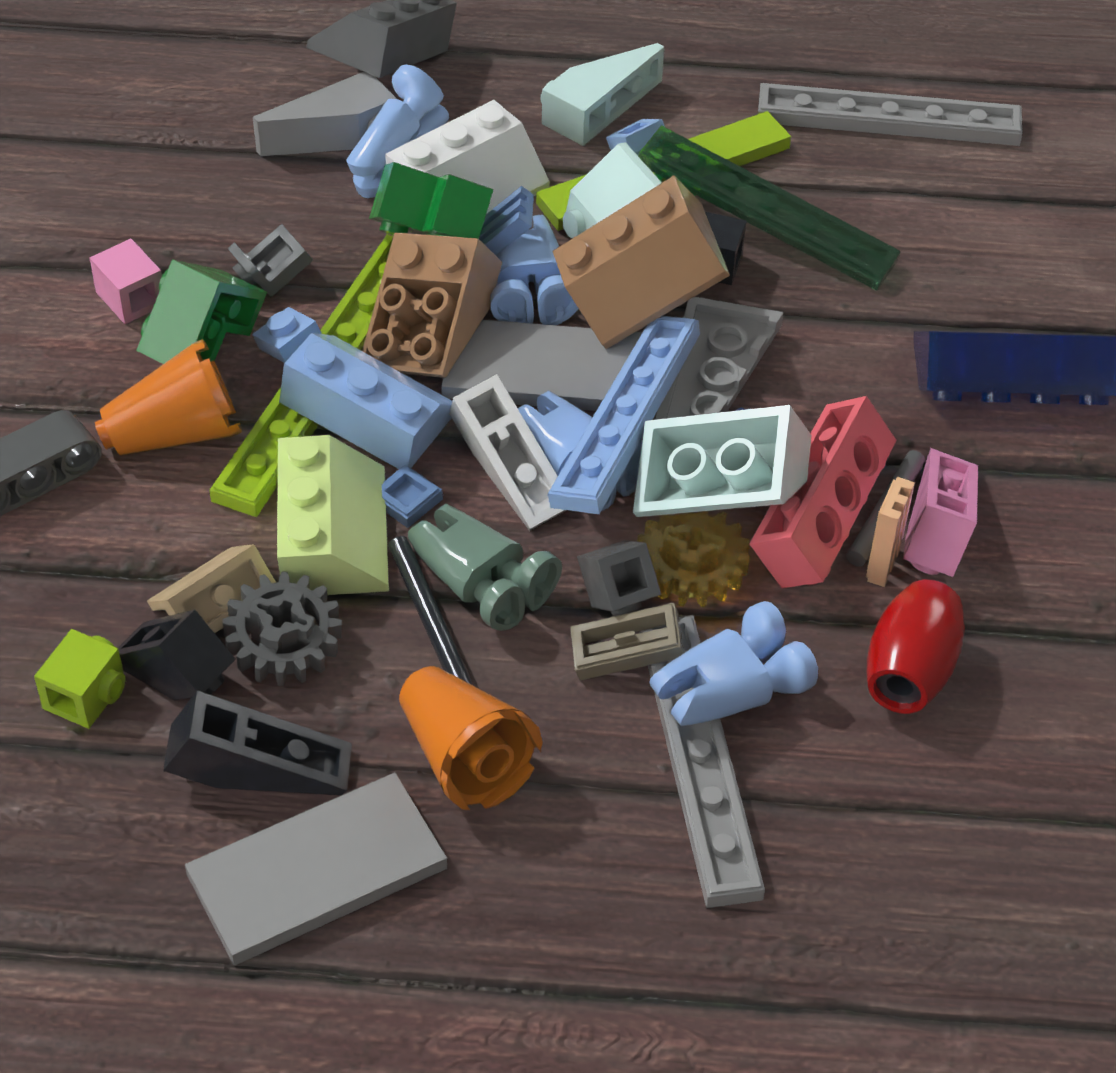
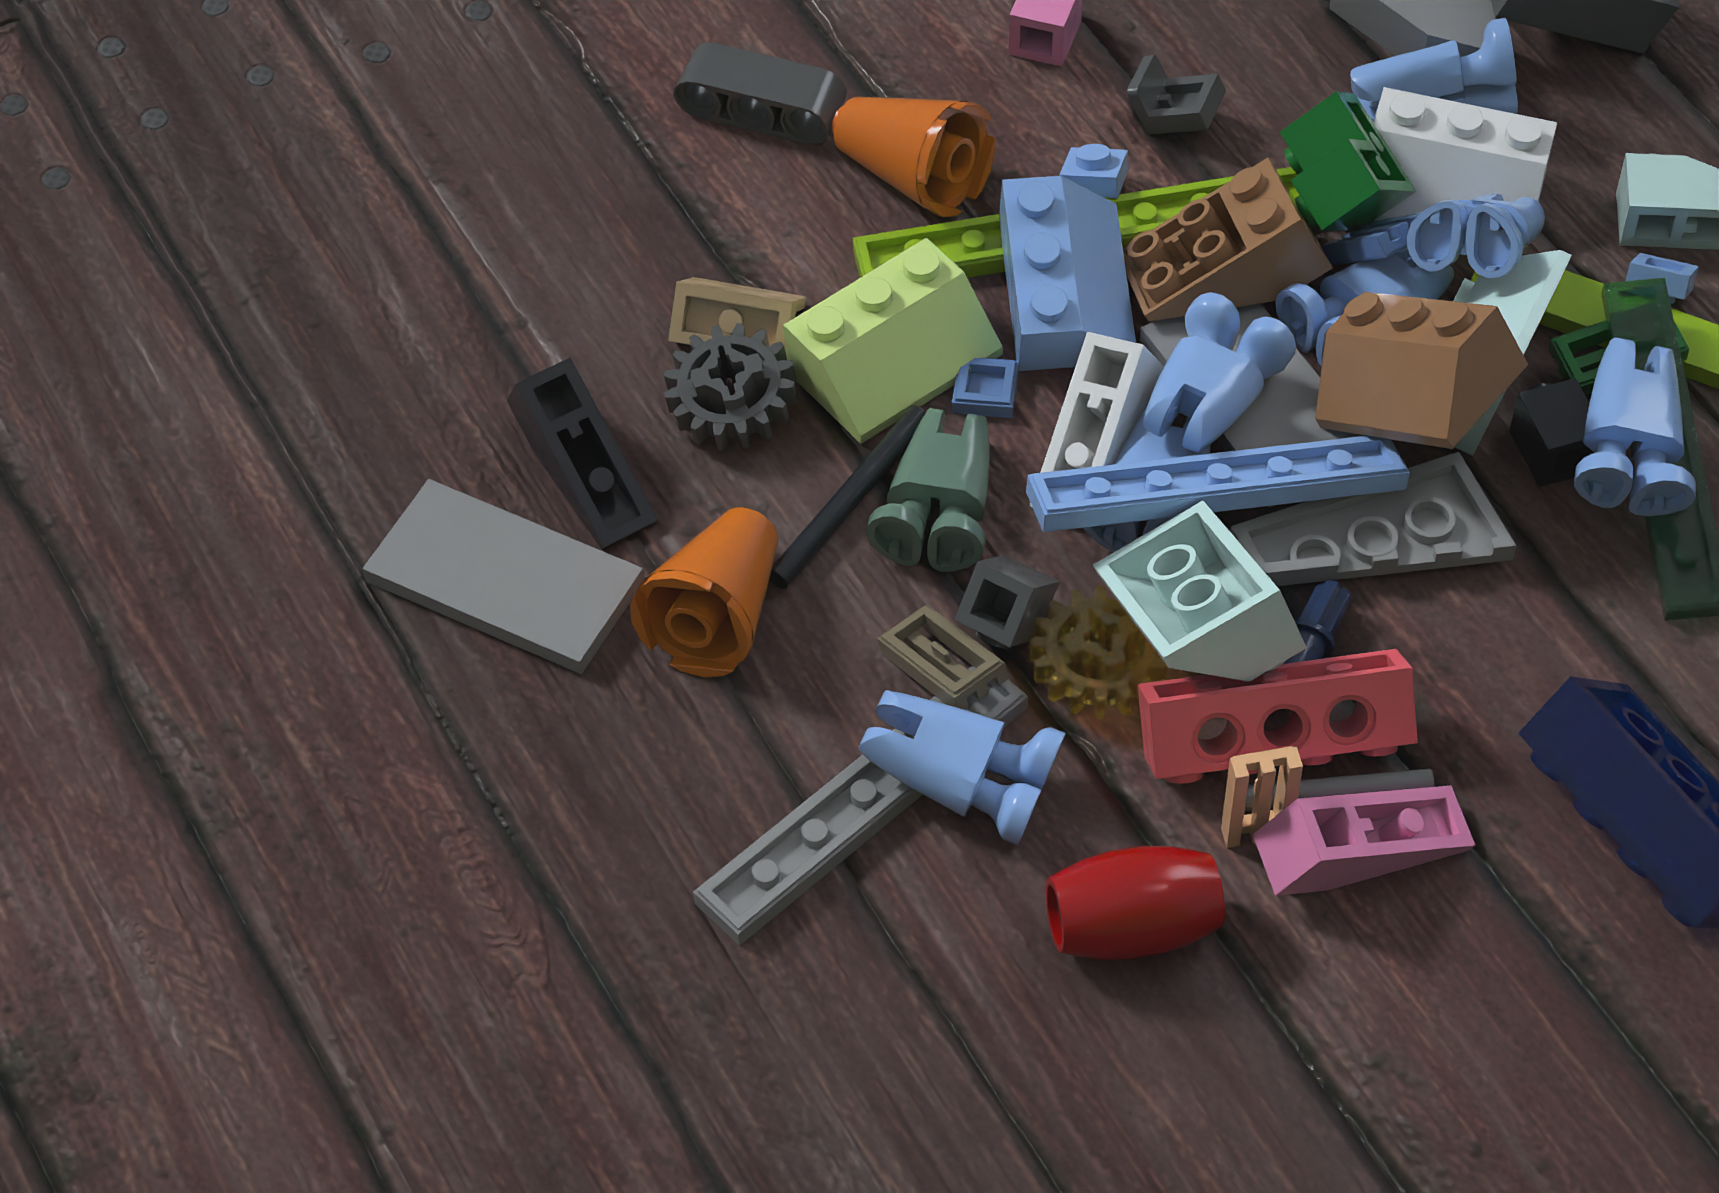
camera: 60 degrees right, 5 degrees up
(80, 678) = (561, 283): lime brick -> none
(176, 655) = (634, 335): black slope -> none
(196, 306) = (1045, 81): brick -> none
(535, 361) = (1209, 378): none -> light blue piece
(560, 167) = (1482, 228): none -> light blue piece
(765, 202) = (1641, 412): none -> light blue piece

